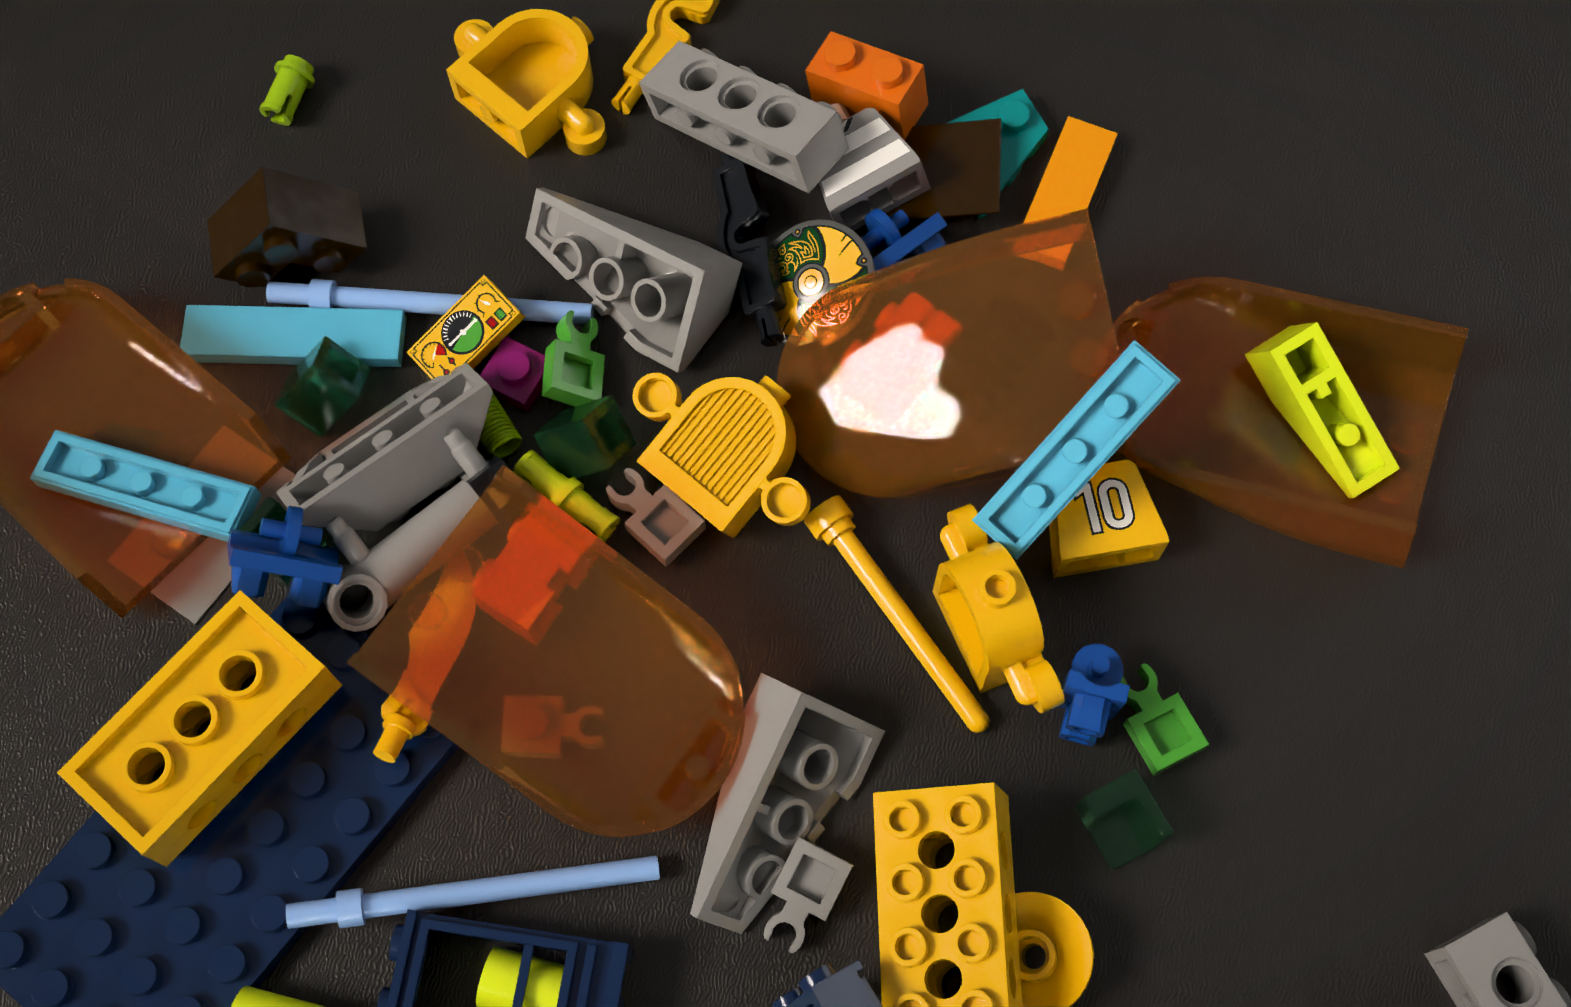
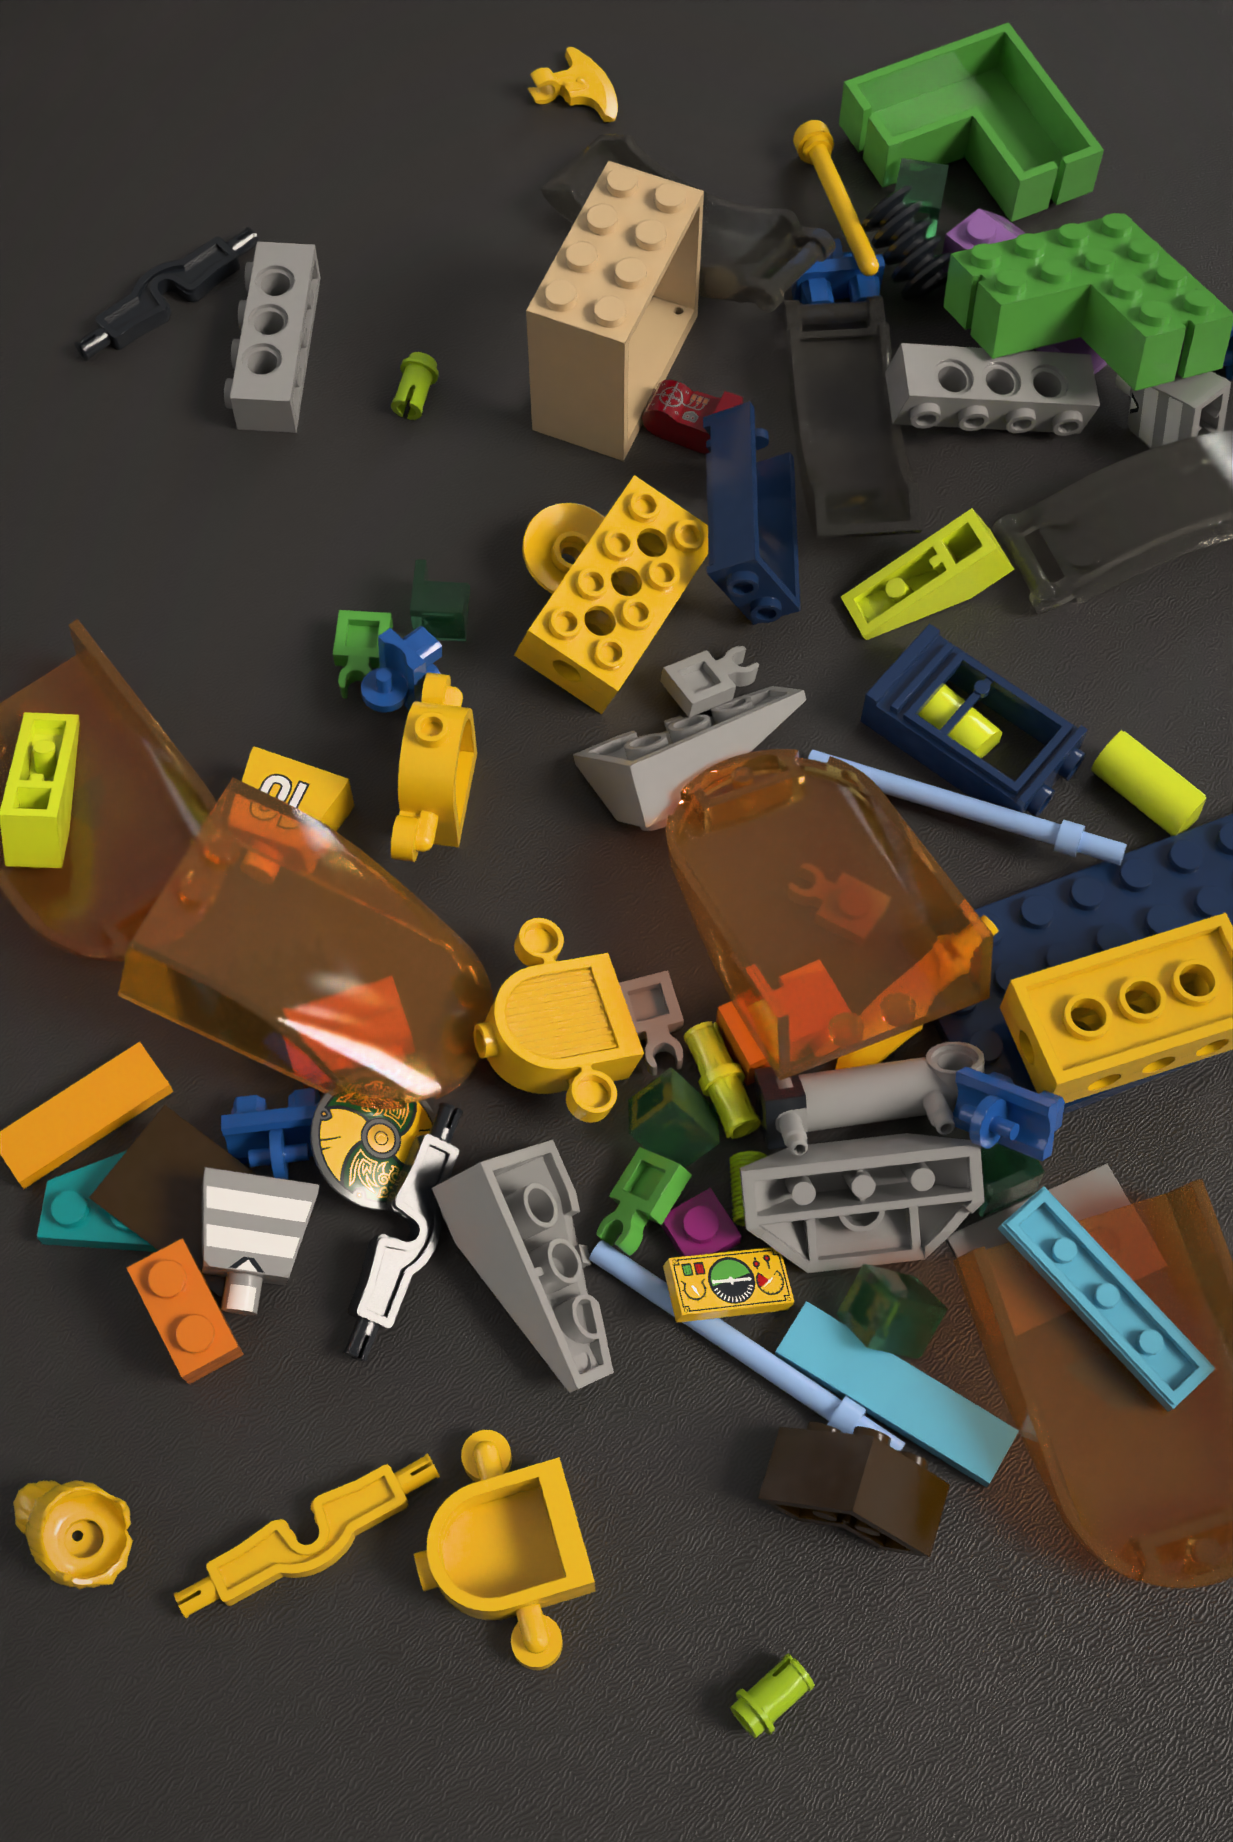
camera: 150 degrees left, 5 degrees down
(745, 115) = (375, 1425): light grey brick -> none
(833, 524) = (504, 922): yellow piece -> none
(1076, 449) = (285, 799): medium azure tile -> none

